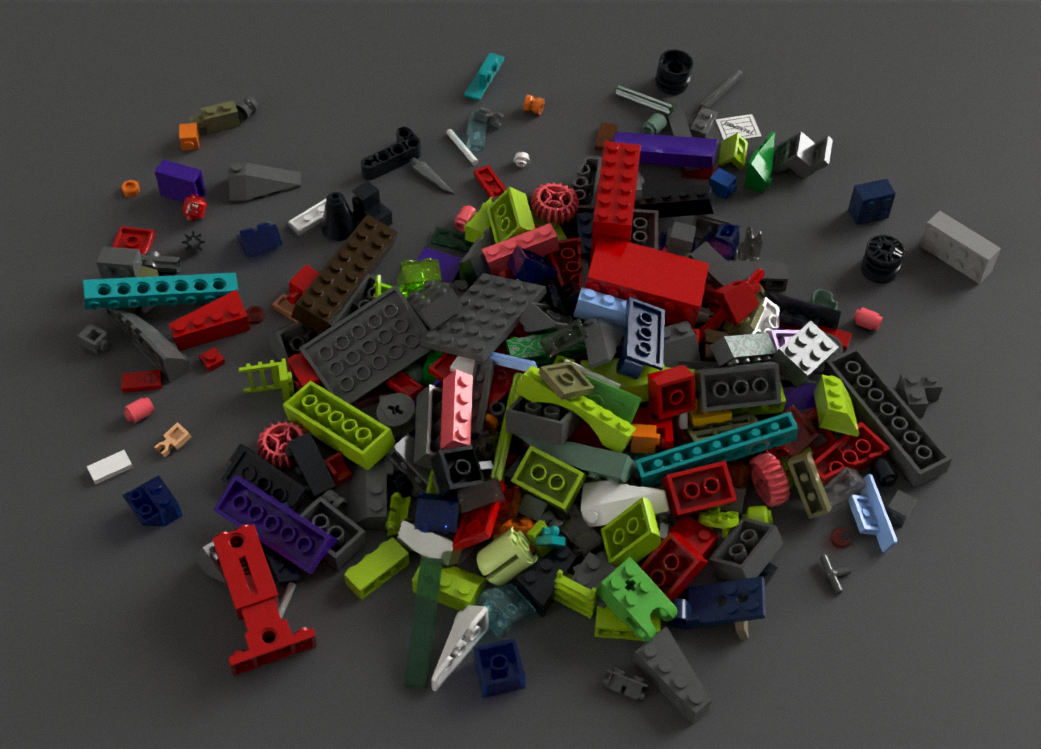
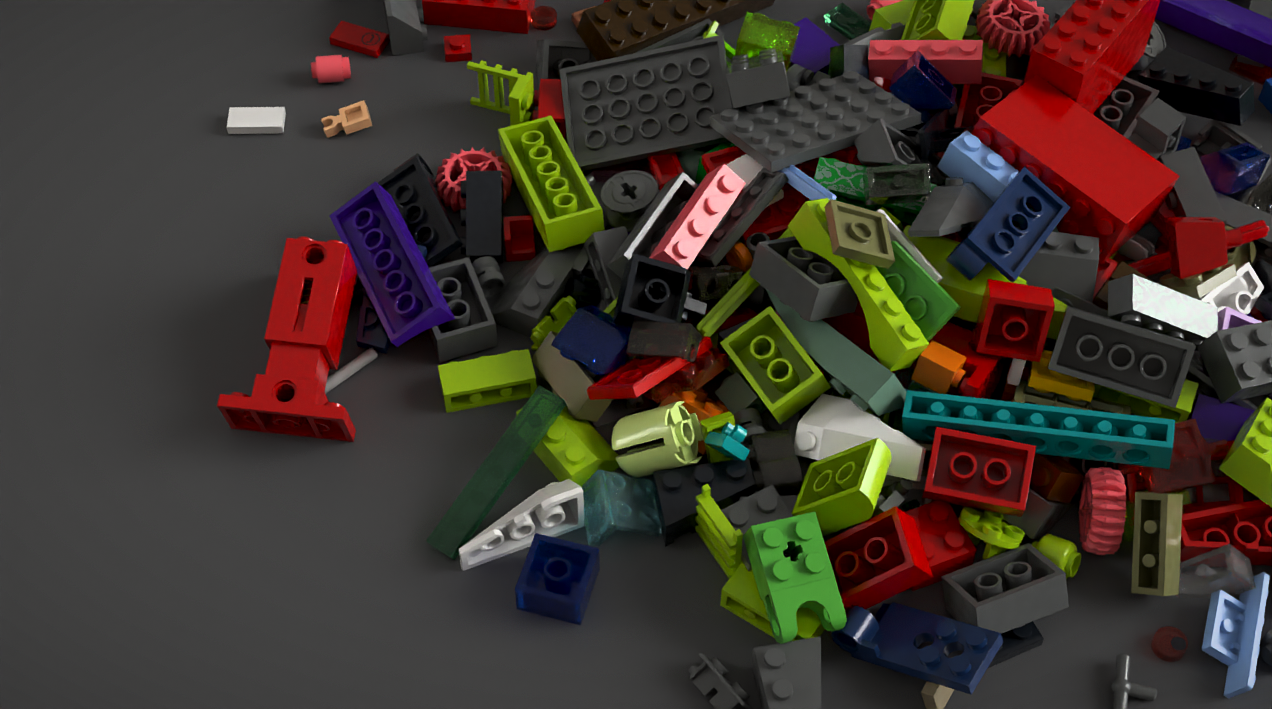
camera: 30 degrees right, 0 degrees up
(153, 503) = (271, 181): clear blue slope -> none

